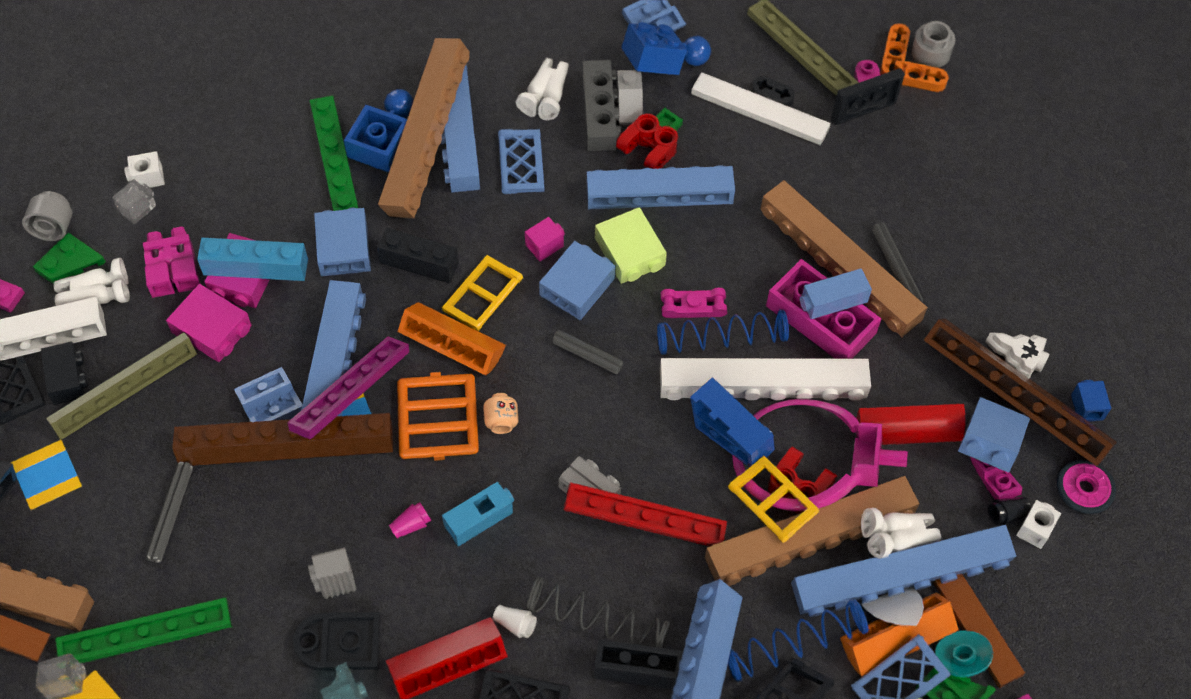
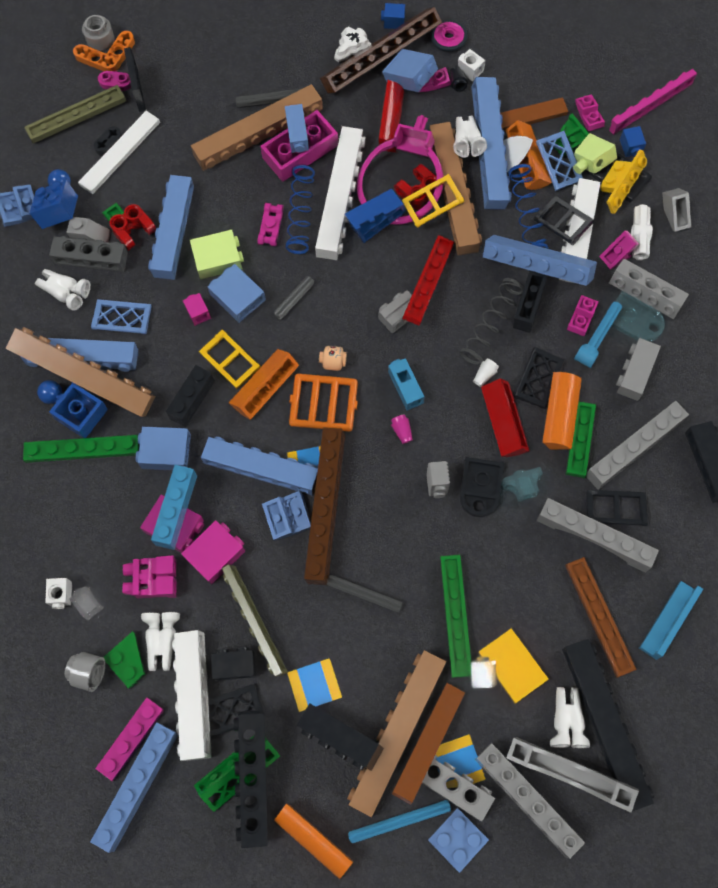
camera: 75 degrees left, 10 degrees up
(348, 388) = (297, 452): magenta plate -> none
(965, 653) = (548, 116): teal dish -> none

